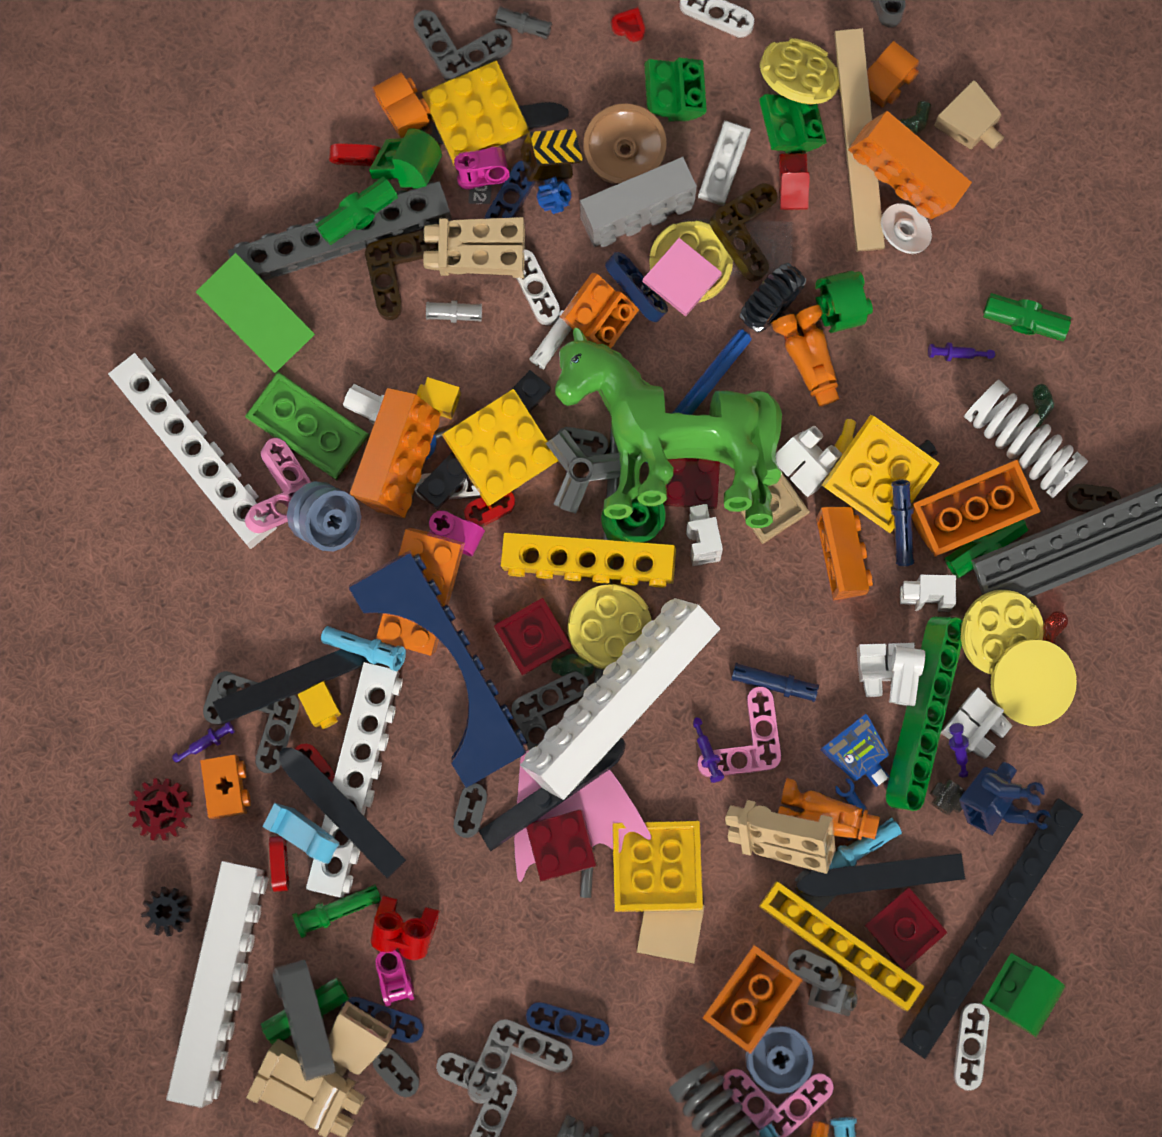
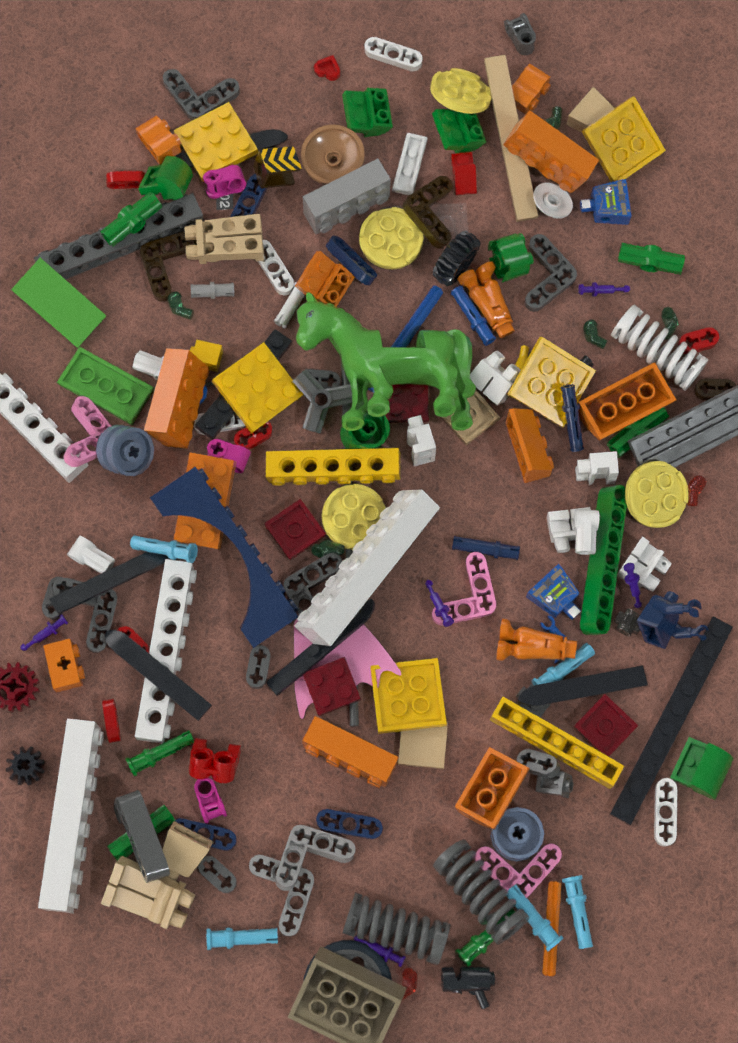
camera: 10 degrees left, 5 degrees down
(265, 644) = (86, 553): none -> white piece
(301, 832) = (127, 693): medium azure leg -> none
(320, 705) = (134, 596): yellow brick -> none
(406, 328) = (177, 307): none -> clear green arm
(523, 22) = (246, 72): dark grey pin -> none
(554, 195) = (281, 197): blue gear -> none
(577, 934) = (350, 752): none -> orange brick
(682, 277) = (385, 249): bright pink tile -> none
(782, 836) = (503, 661): tan hips -> none
(792, 383) = (477, 322): none -> blue pin
(901, 323) = (555, 270): none -> dark grey beam
(939, 412) = (591, 334): none -> clear green arm
(979, 238) = (609, 203): none -> blue torso
(1006, 156) = (623, 140): none -> yellow plate
(1034, 682) = (685, 529): light yellow tile -> none
(1077, 425) = (697, 336): none -> red beam

